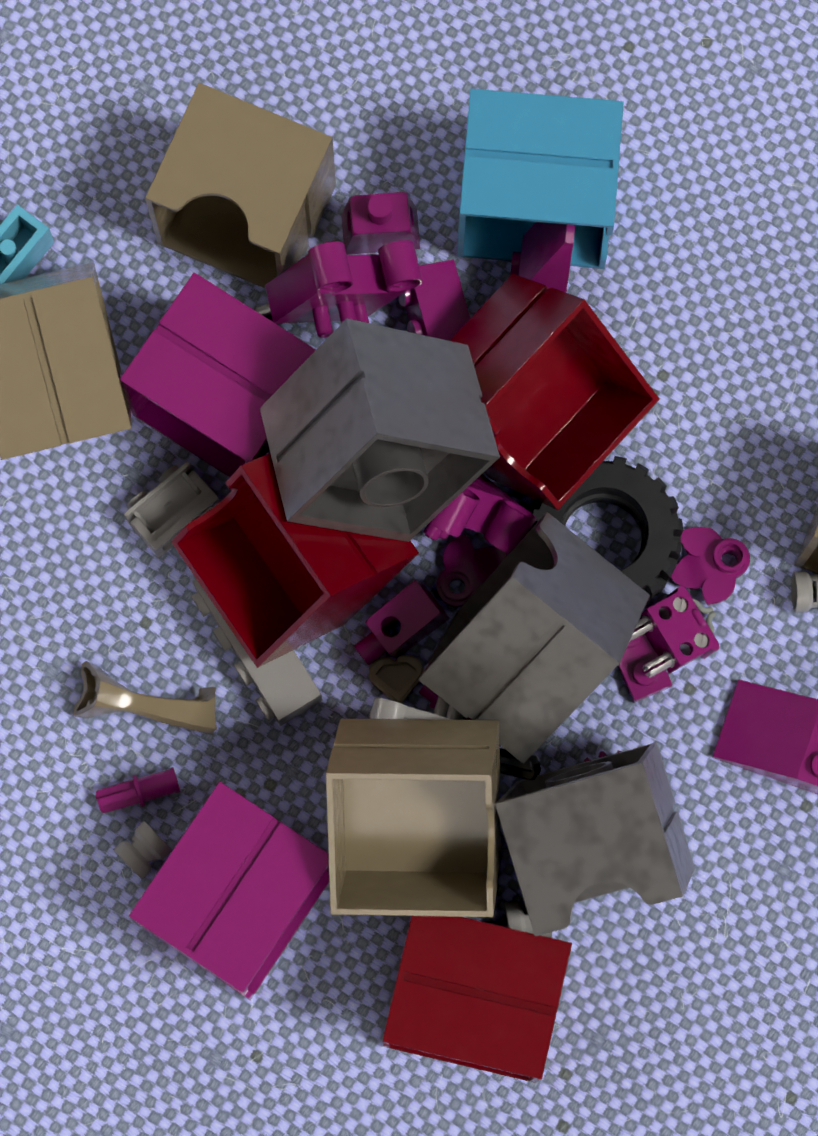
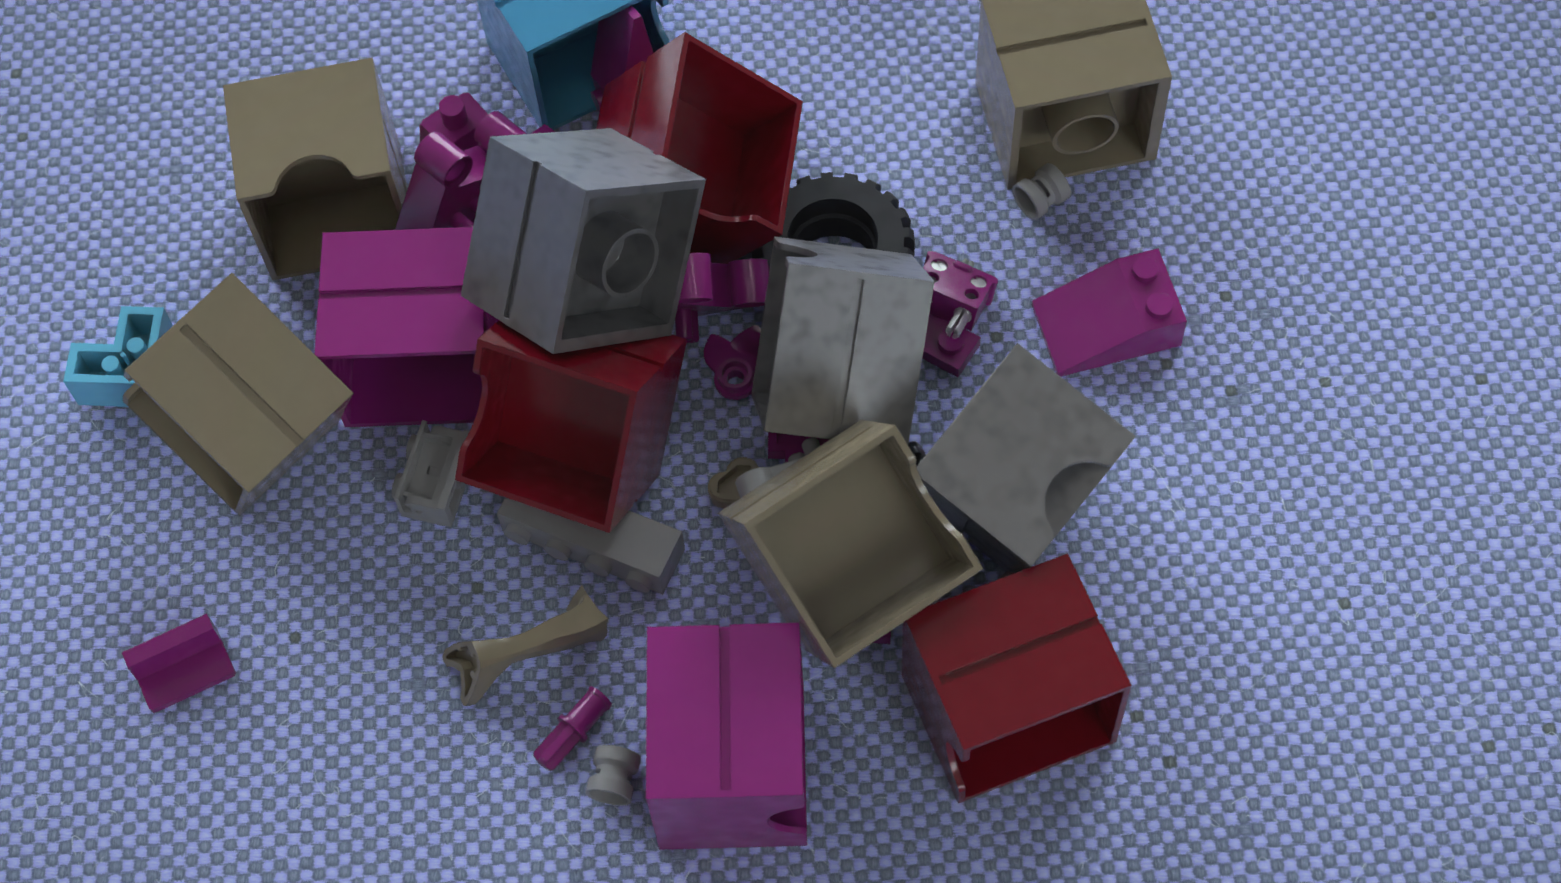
camera: 30 degrees left, 15 degrees down
(418, 617) = (711, 428): magenta torso -> none
(704, 565) = (938, 232): magenta plate -> none

